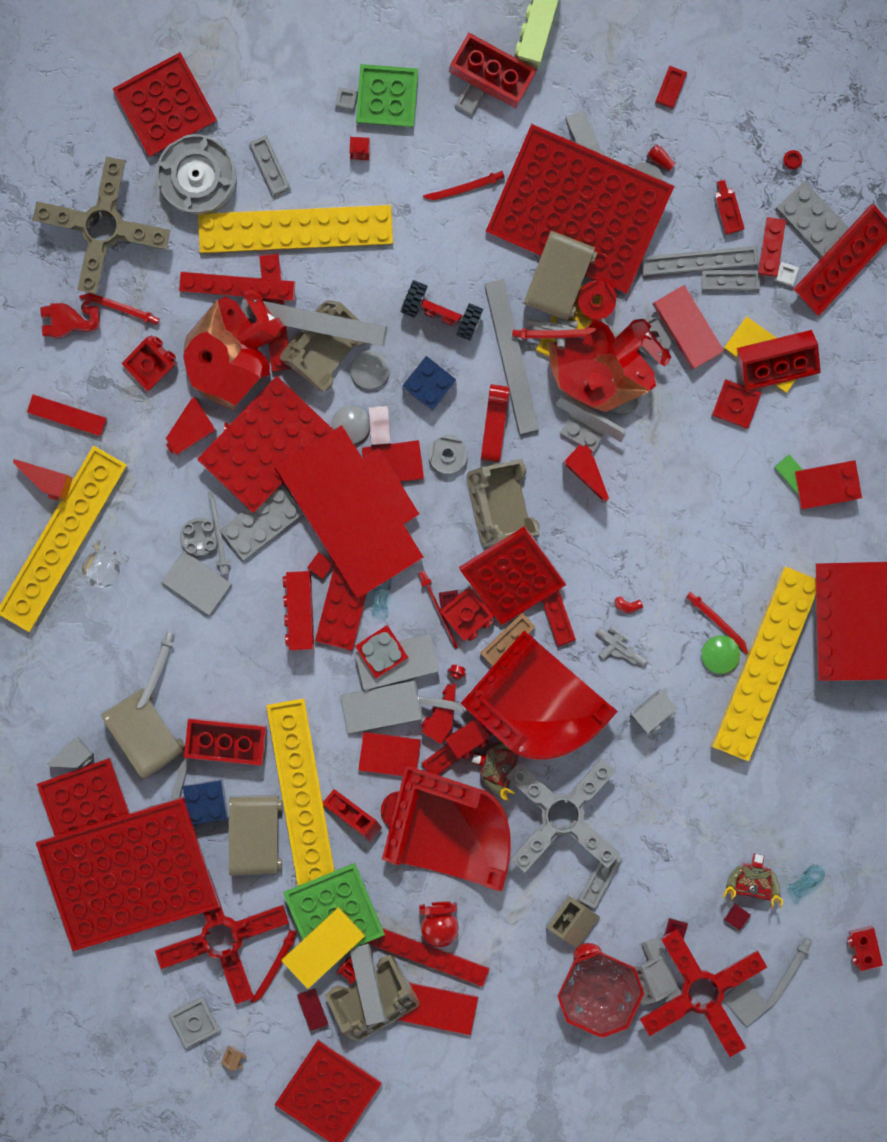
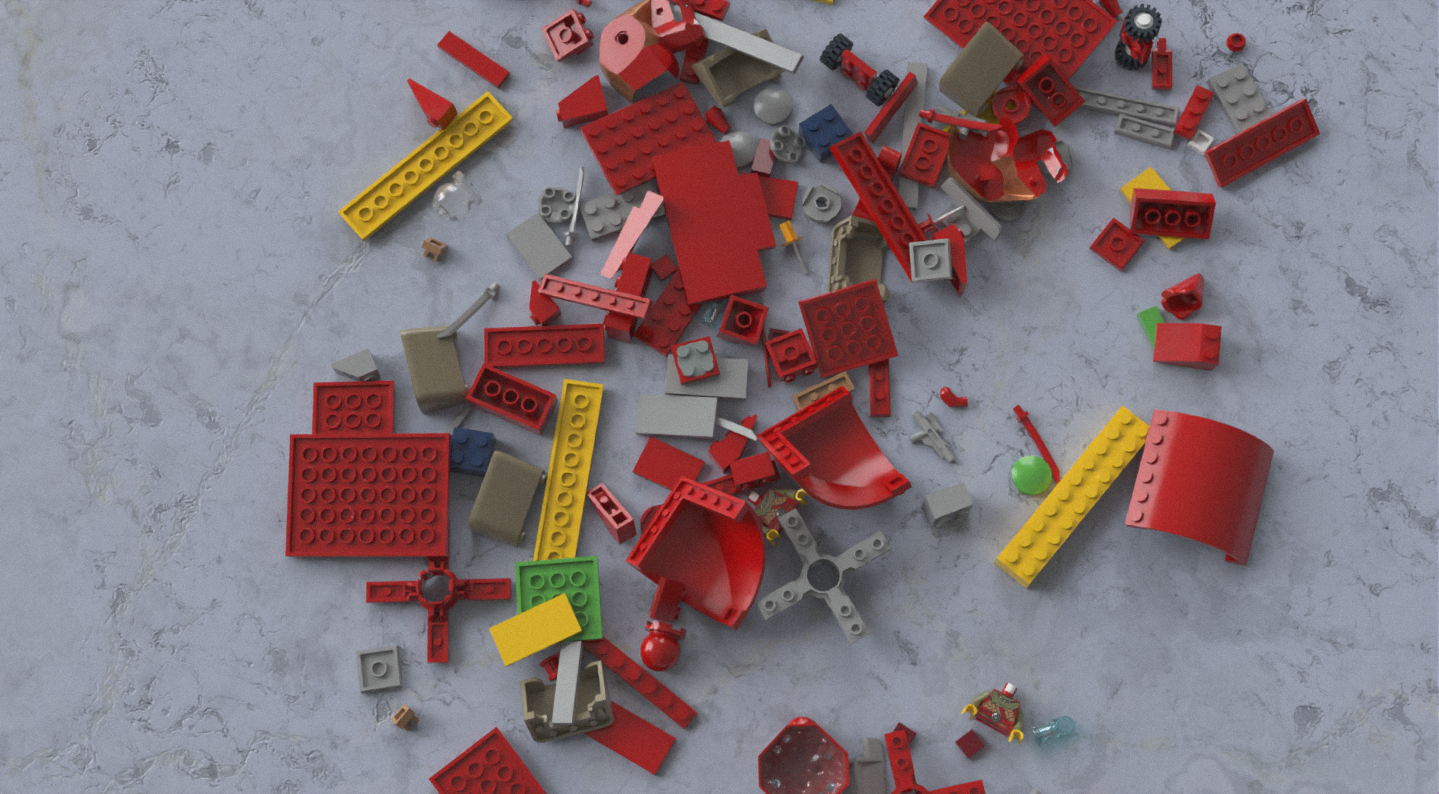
camera: 20 degrees right, 15 degrees down
(100, 617) = (434, 246): none -> medium nougat tile
(220, 642) = (541, 307): none -> red slope
(236, 678) = (544, 345): none -> red plate
(270, 626) = (595, 297): none -> plate
(281, 545) = (631, 232): none -> wedge
(288, 942) = (478, 641): red sword -> none
(312, 1009) = (502, 695): dark red tile -> none
(321, 401) = (717, 119): none -> red cone
(396, 407) = (787, 145): none -> light grey dish
(412, 597) = (742, 321): none -> red slope
(429, 882) = (666, 600): none -> red slope
(431, 501) = (791, 238): none -> light orange piece
(457, 672) = (762, 407): red plate -> none
(483, 338) = (891, 107): none -> red tile
(510, 444) = (879, 196): none -> red plate
(531, 375) = (925, 155): none -> red tile
(557, 442) = (930, 224): none -> piece
(569, 487) = (930, 260): none -> light grey tile
(572, 921) = (798, 690): dark tan slope -> none
(598, 883) = (838, 661): light grey tile -> none
(629, 274) = (1050, 90): none -> red slope
(688, 327) = (1091, 158): tile -> none
(698, 196) = (1136, 36): none -> black plate
(814, 436) = (1184, 297): none -> red hat

